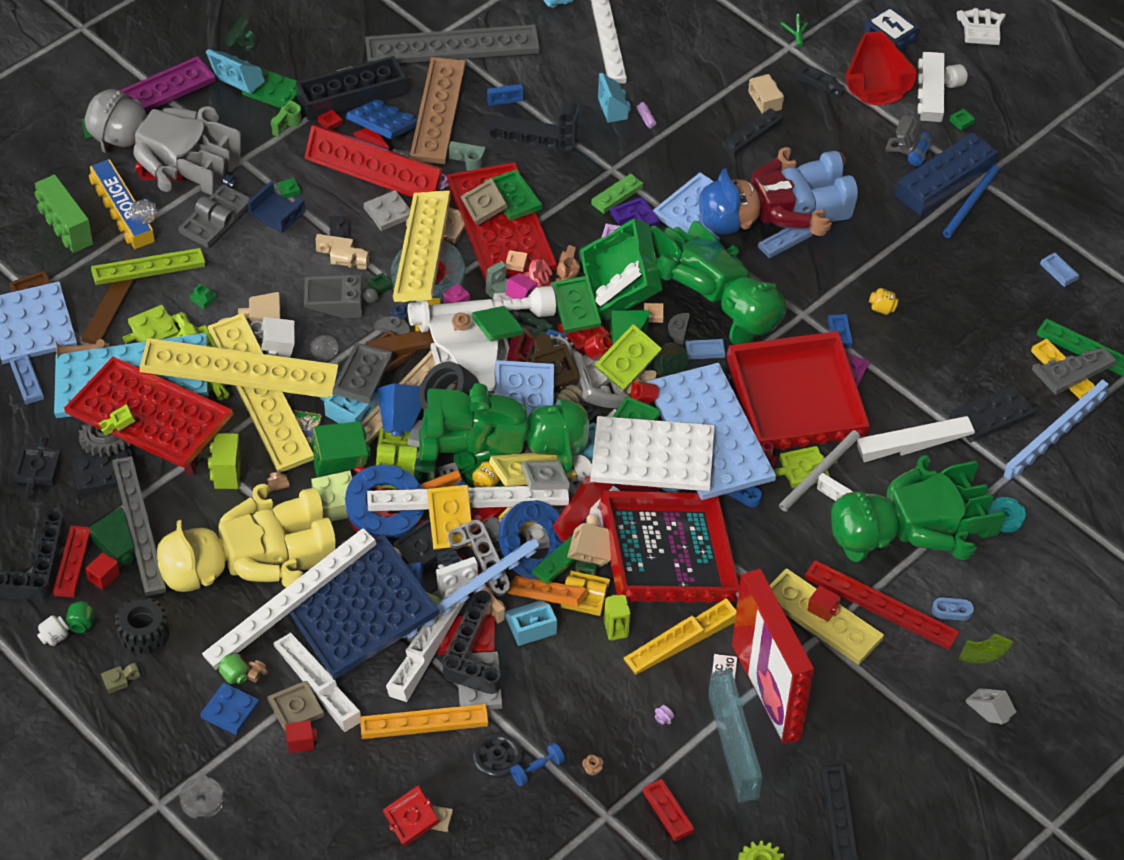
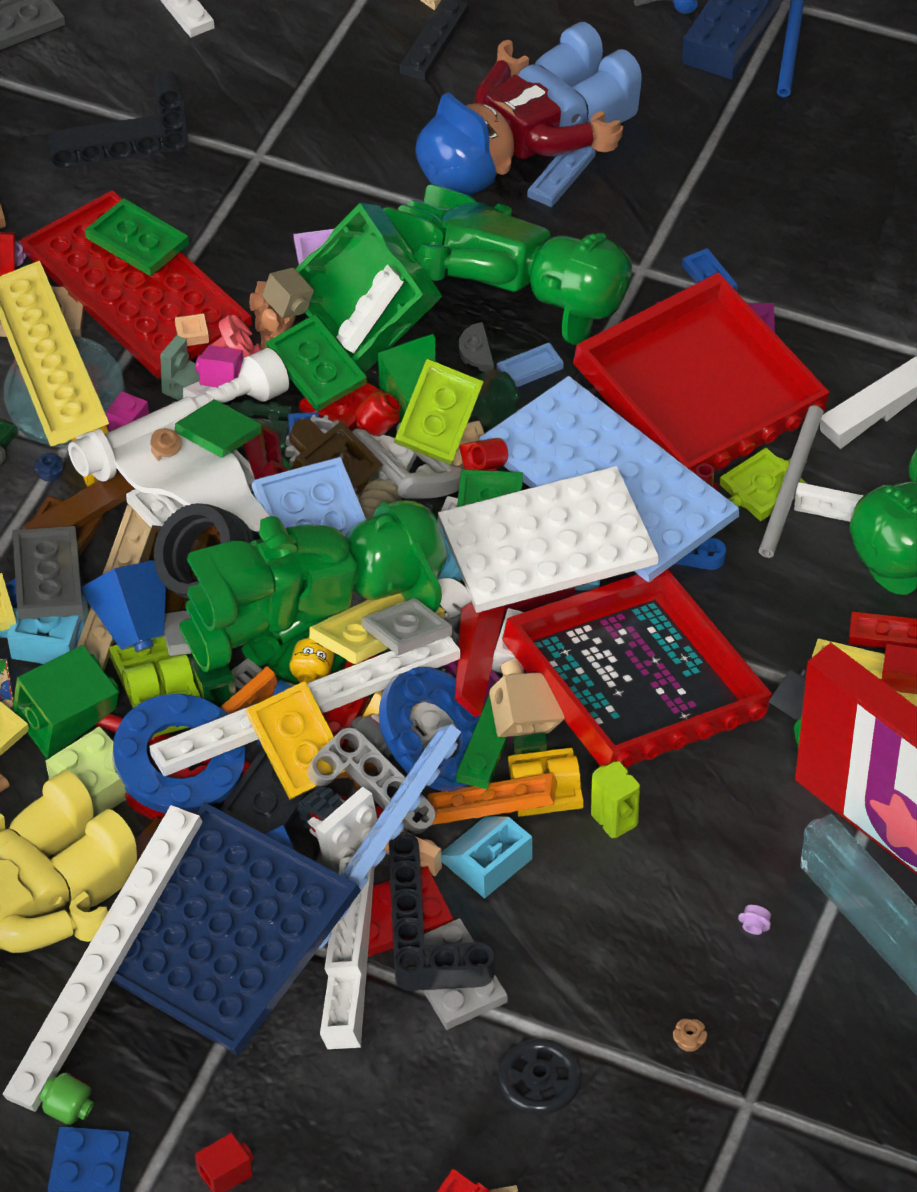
camera: 20 degrees left, 0 degrees up
(257, 669) = (103, 1083): medium nougat plate -> none
(295, 705) = (192, 1118): dark tan plate -> none
(319, 681) = (209, 1068): white slope -> none
(396, 325) = (46, 485): dark grey plate -> none
(423, 721) = (402, 1067): light orange plate -> none
(471, 154) = (40, 199): sand green plate -> none
(484, 201) = (101, 260): dark tan plate -> none
(505, 94) = (47, 98): blue plate -> none
(554, 753) = (627, 1040): blue wheel -> none
(577, 257) = (287, 293): none -> dark tan brick
(612, 99) = (211, 56): medium azure slope -> none
(617, 193) = (284, 187): bright green plate -> none
(634, 209) = (323, 202): dark purple plate -> none
(646, 115) = (270, 63): lavender piece -> none
(655, 312) = (434, 328): light nougat plate -> none
(668, 810) = (837, 1059): red plate -> none
(682, 636) = (719, 793): yellow slope -> none
(683, 205) = (392, 172): light blue plate -> none
(725, 662) = (797, 813): sticker -> none
(883, 301) = (749, 212): yellow head -> none

